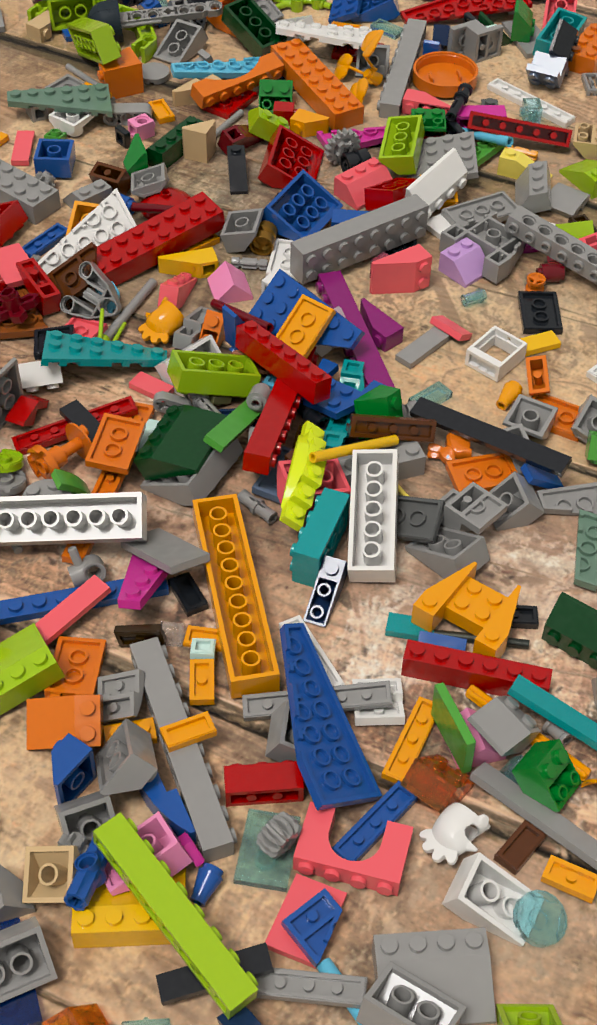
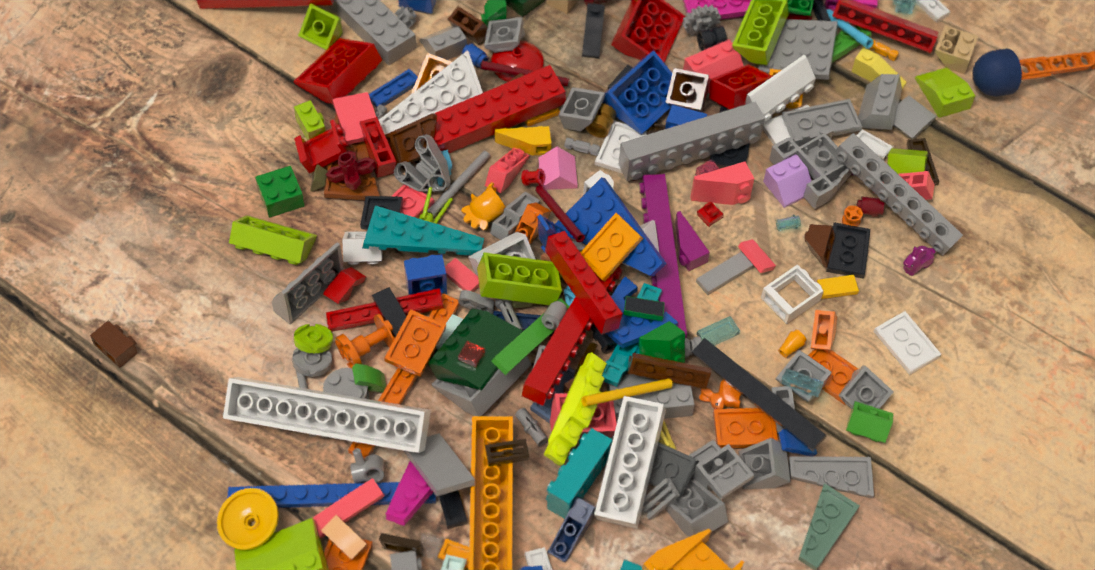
camera: 10 degrees right, 10 degrees up
(73, 636) = (343, 537): none -> light nougat slope
(112, 383) = (425, 274): none -> blue brick
(179, 441) = (471, 354): none -> clear red tile
(211, 288) = (533, 177): none -> red bush
(239, 528) = (507, 459): none -> dark brown tile
(344, 195) = (688, 89): none -> slope
(351, 378) = (644, 308): none -> black tile
(393, 301) = (709, 214): none -> red tile
(409, 544) = (647, 507): none -> light grey tile
(511, 306) = (820, 242): none -> reddish brown slope
(532, 419) = (802, 382): none -> clear light blue tile

